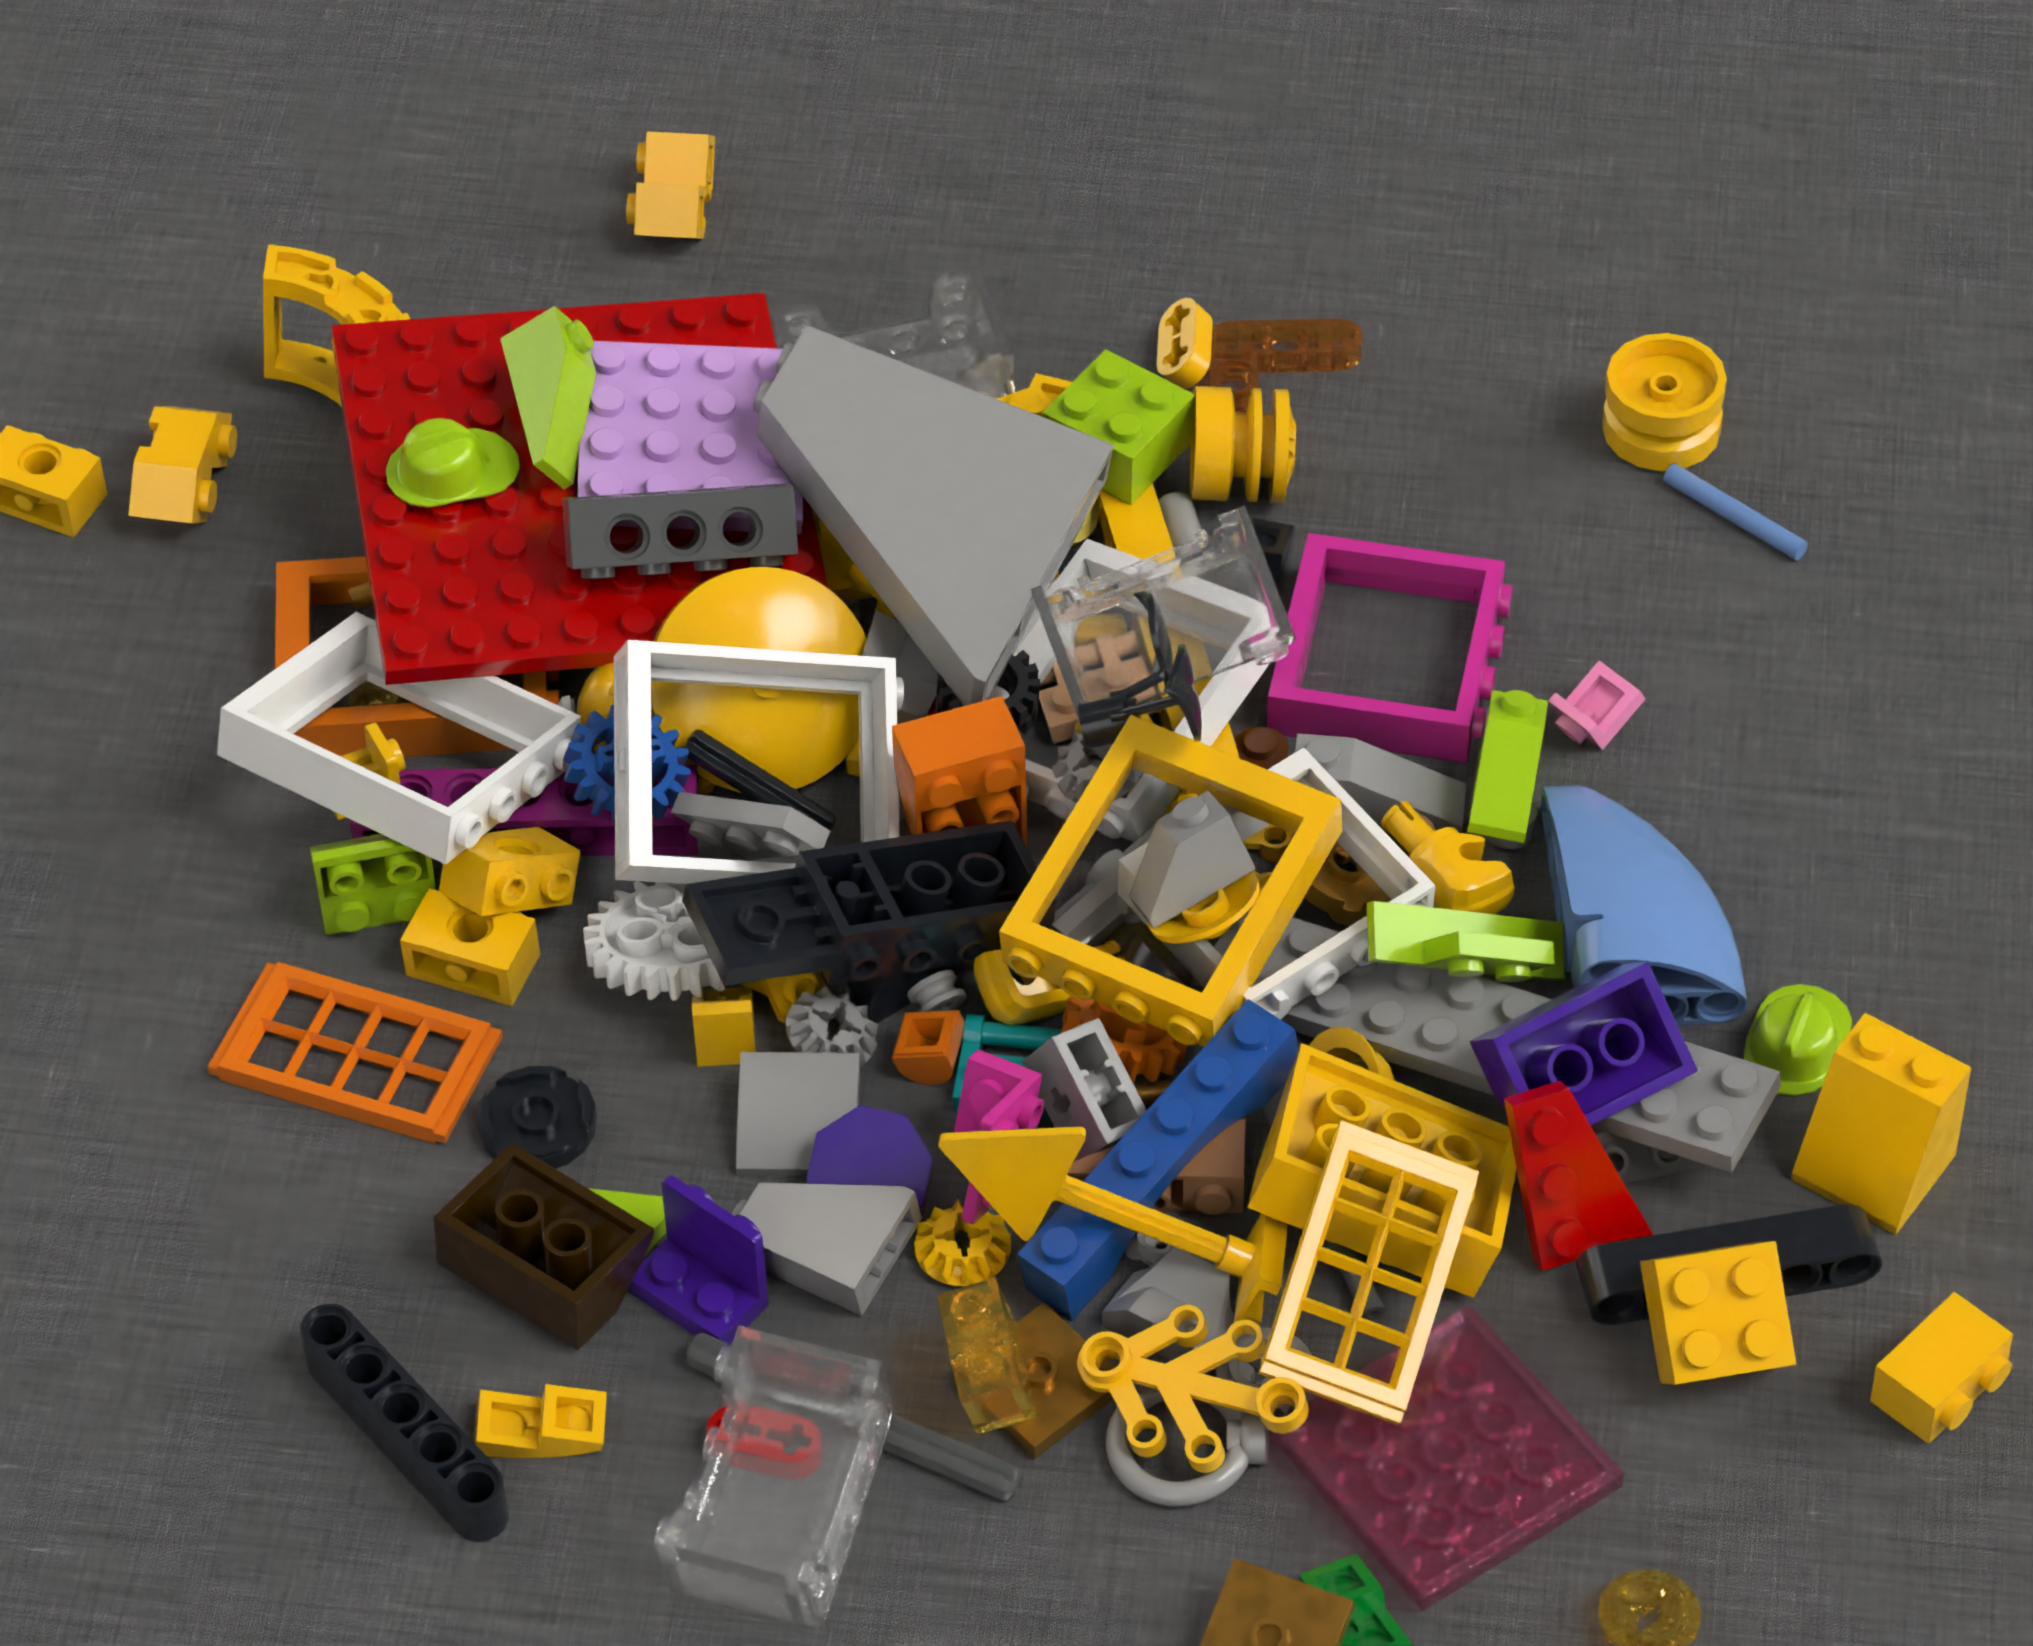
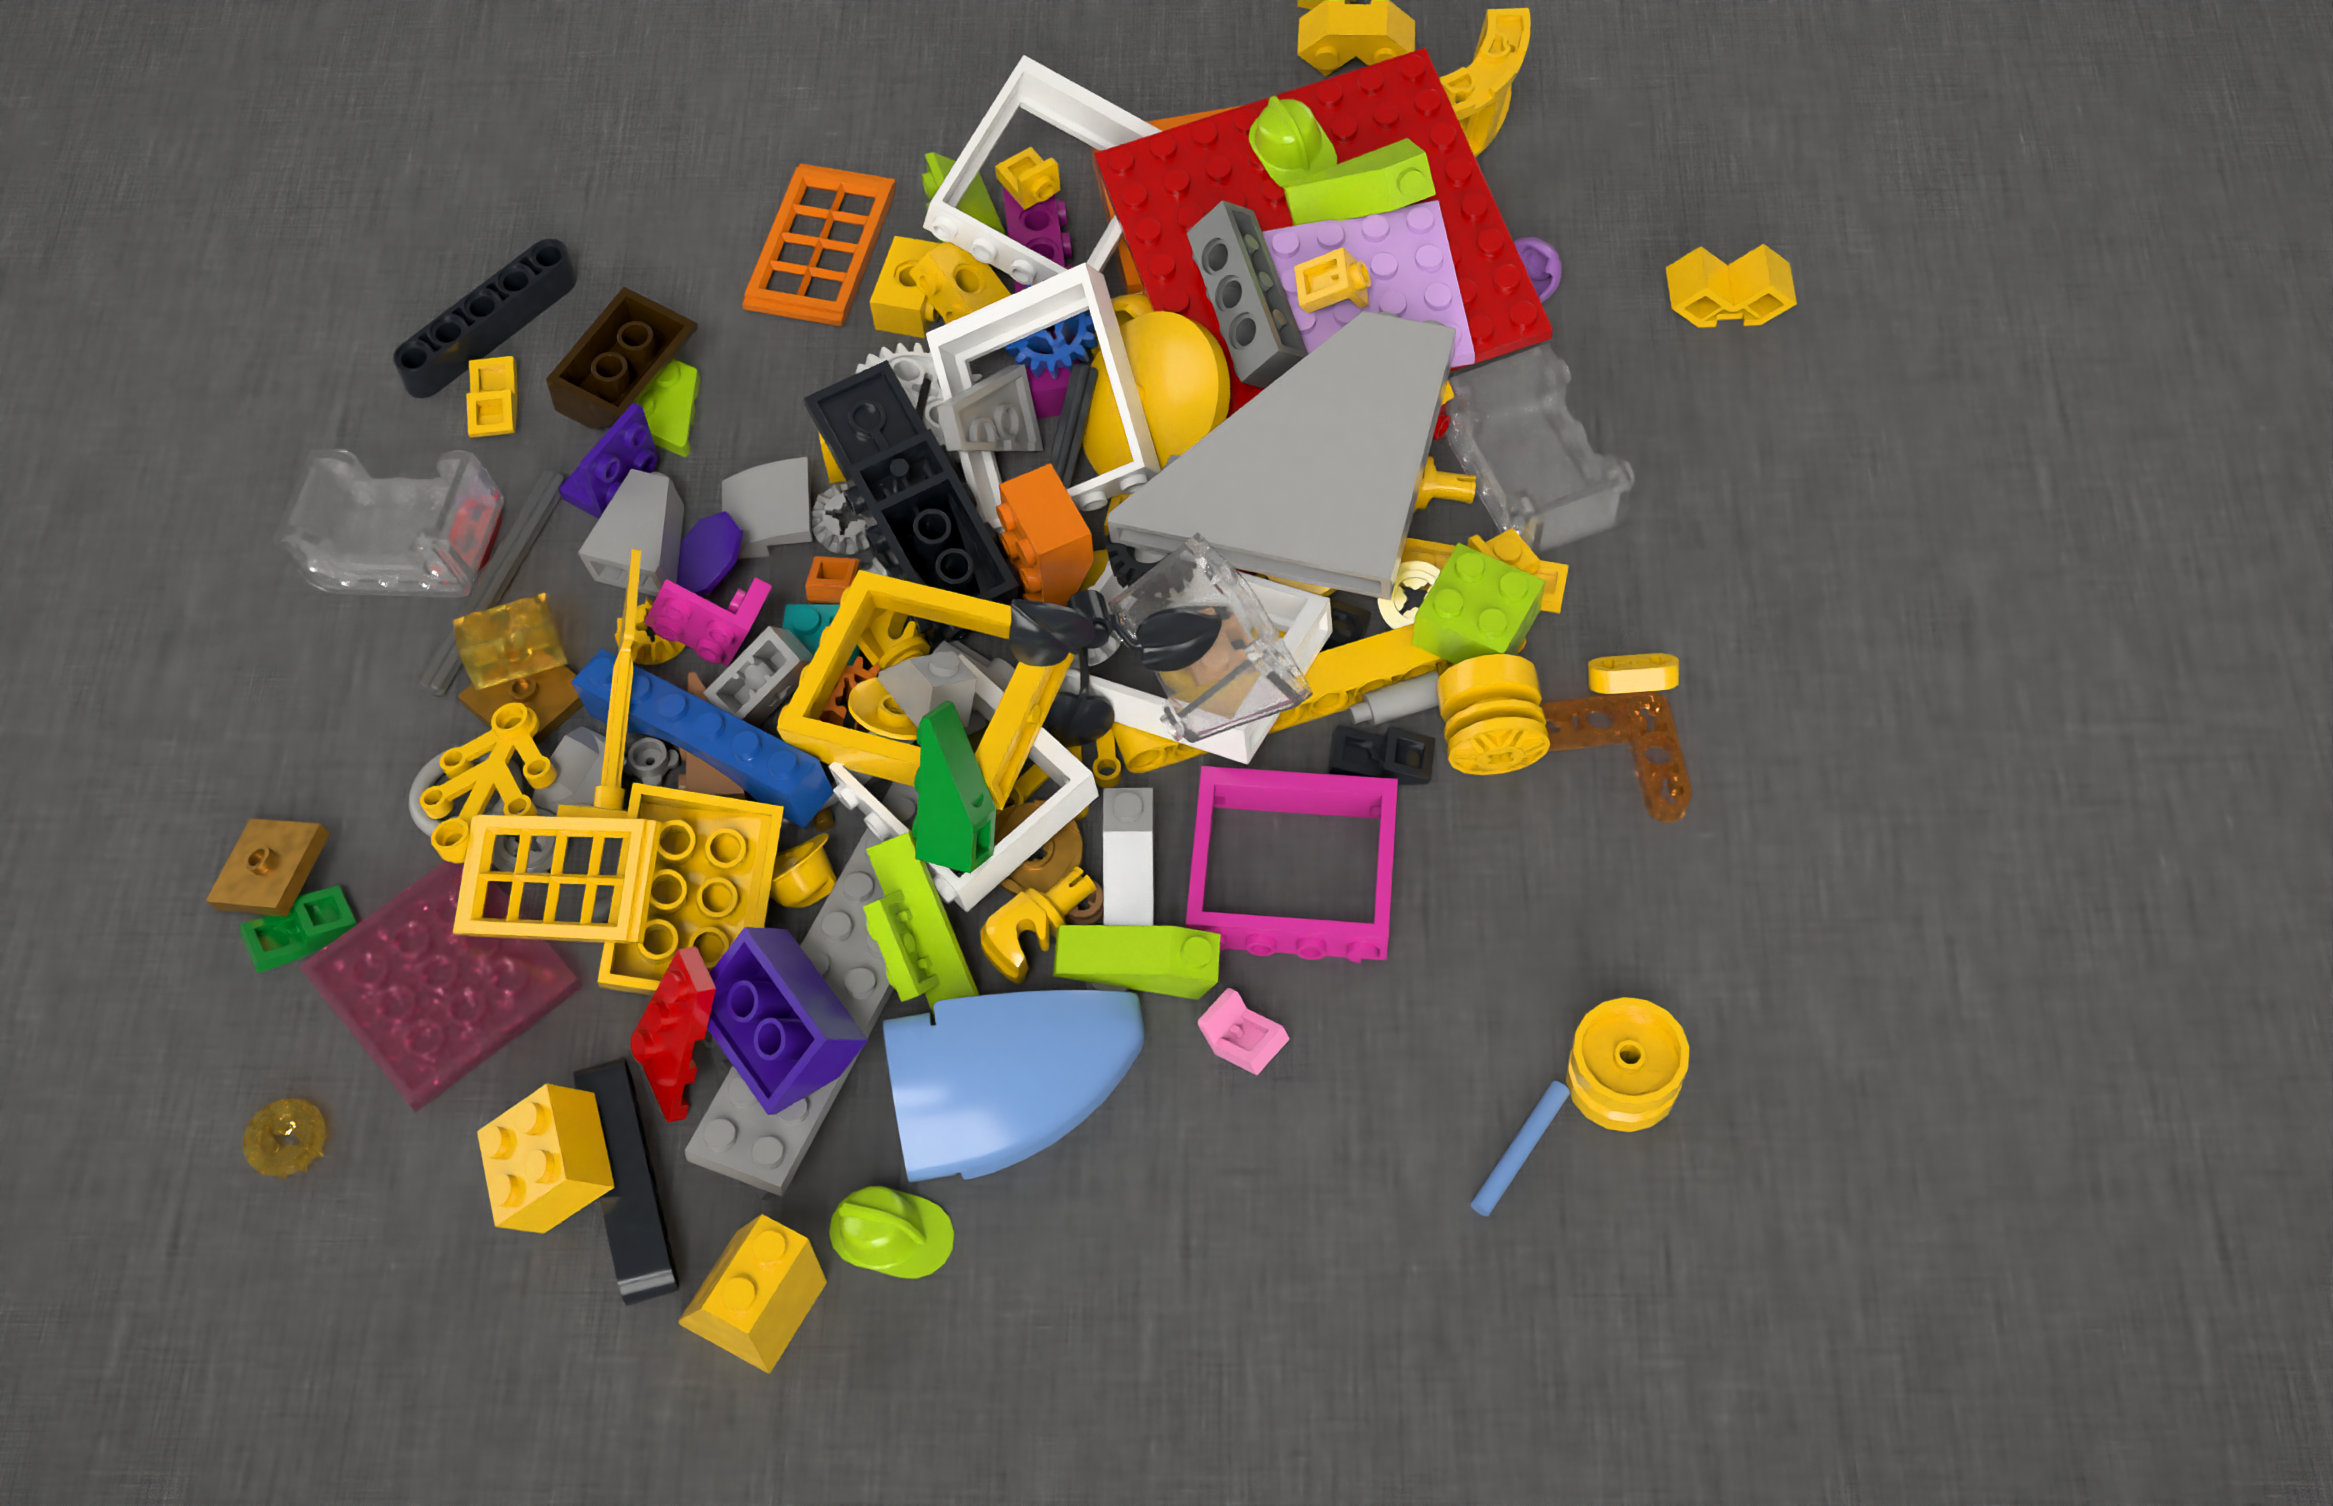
camera: 85 degrees right, 10 degrees up
(538, 1113) = (765, 357): black tile -> none
(693, 437) = (1331, 280): none -> yellow bracket
(1262, 746) = (1169, 779): reddish brown plate -> none
(1361, 838) = (954, 802): none -> green slope
(1942, 1368) = (502, 1354): yellow brick -> none

